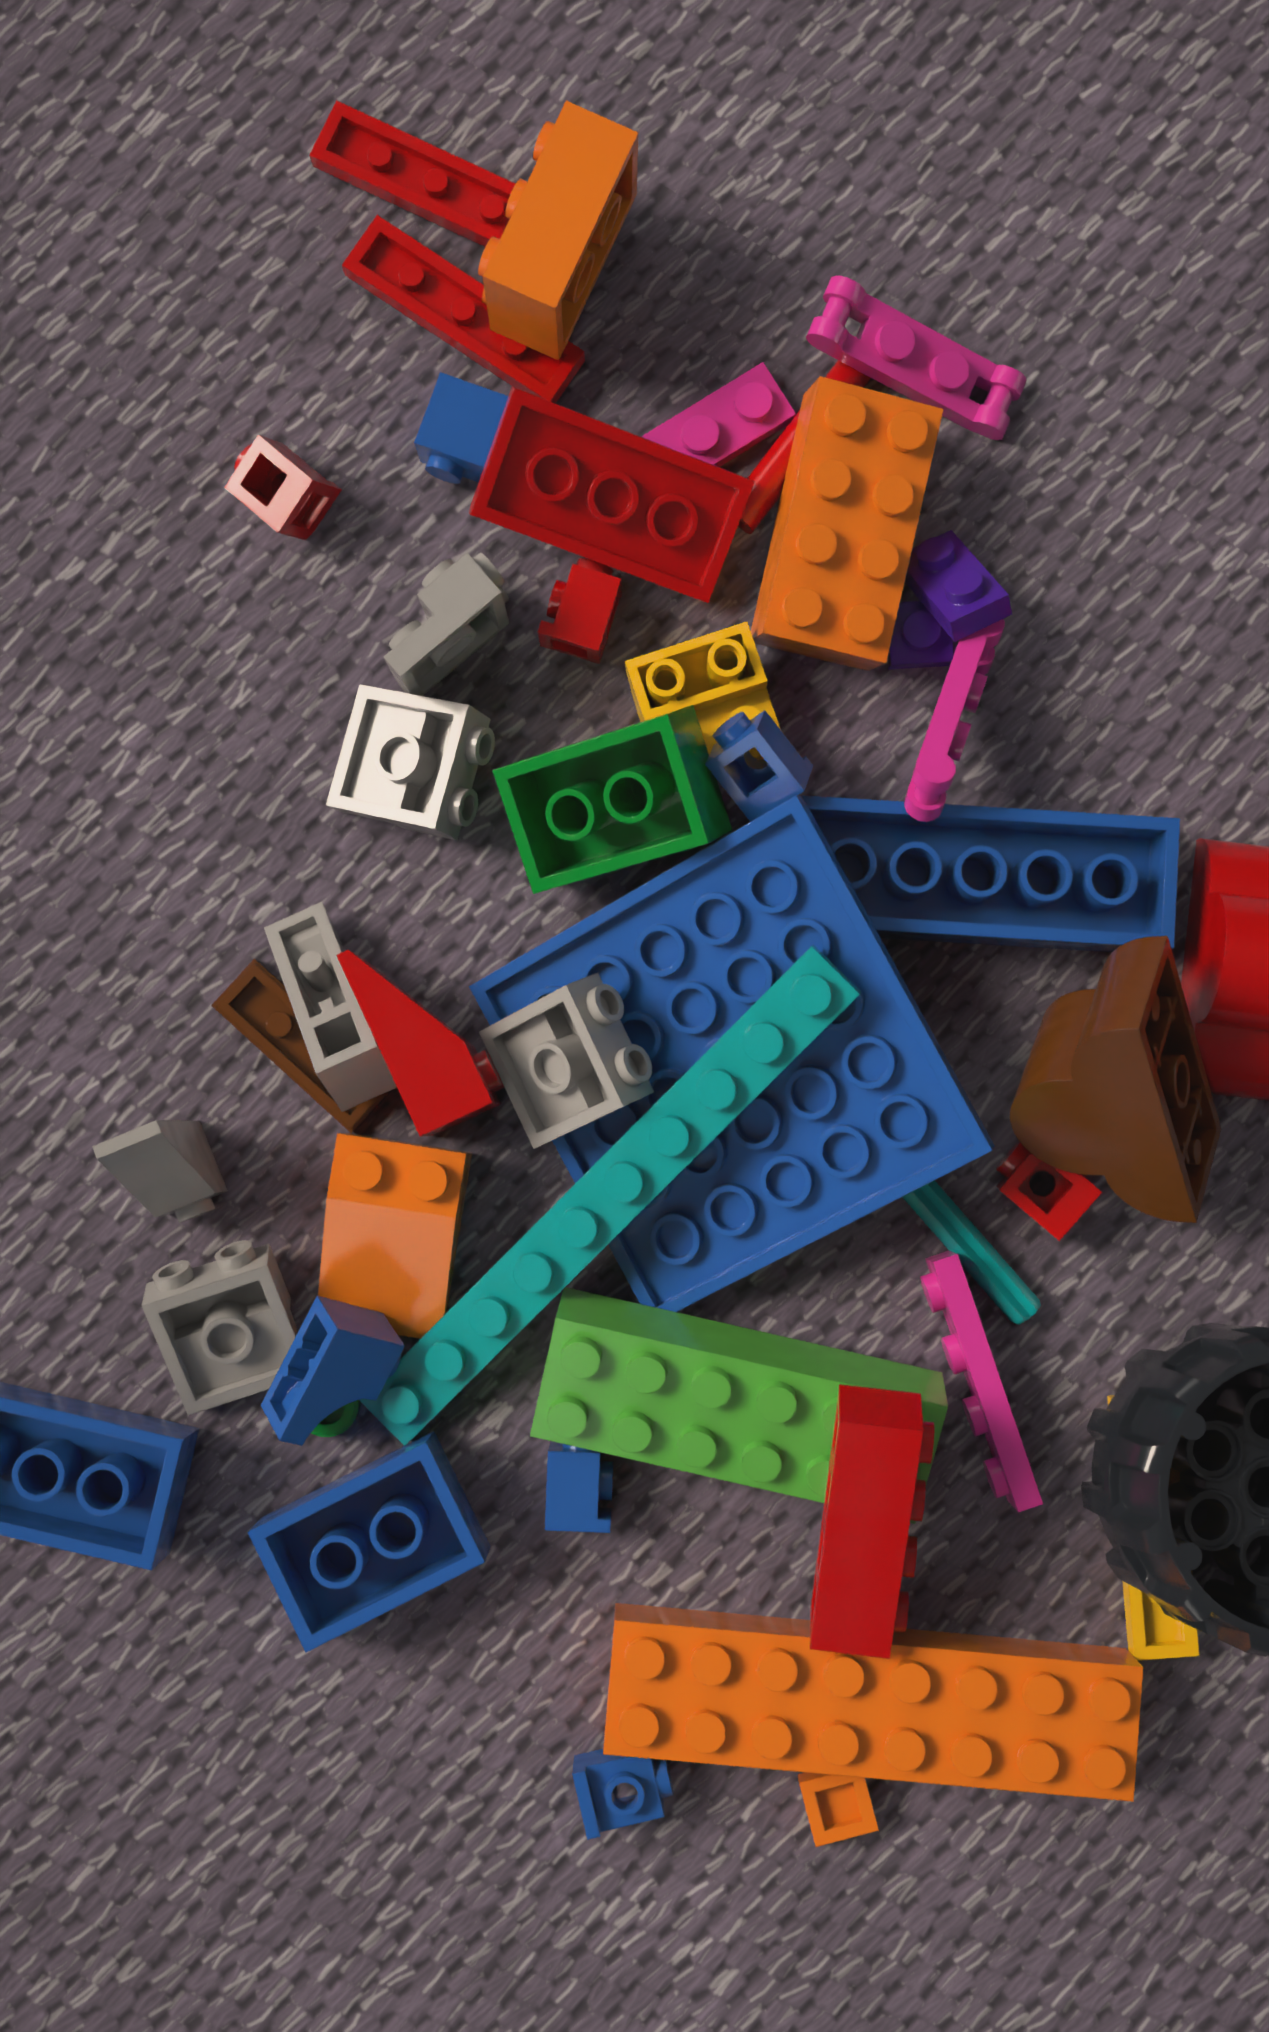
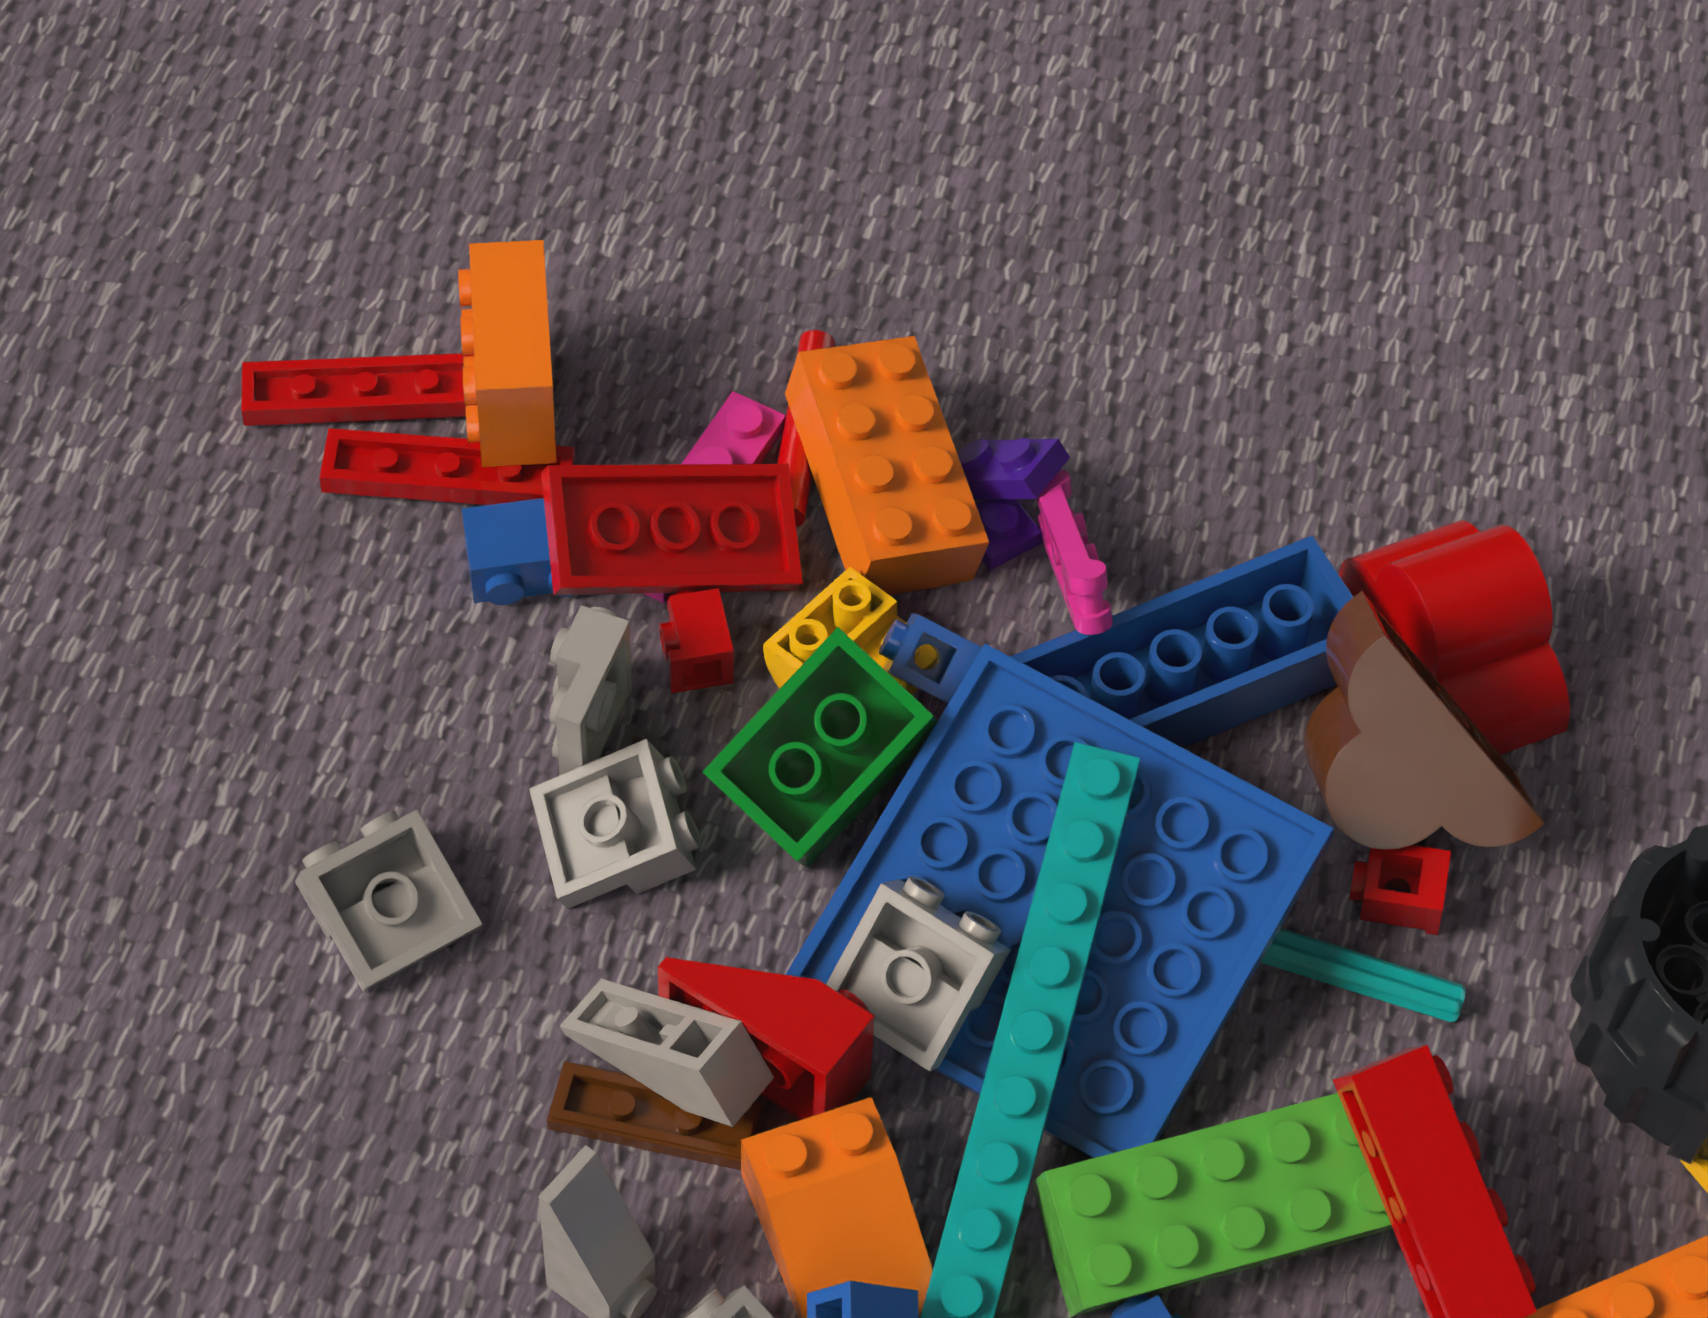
camera: 35 degrees left, 30 degrees down
(182, 729) = (386, 897): none -> light grey plate
(281, 488) = (348, 649): red brick -> none
(914, 359) = (849, 321): dark pink plate -> none
(988, 1407) = (1481, 1088): dark pink plate -> none

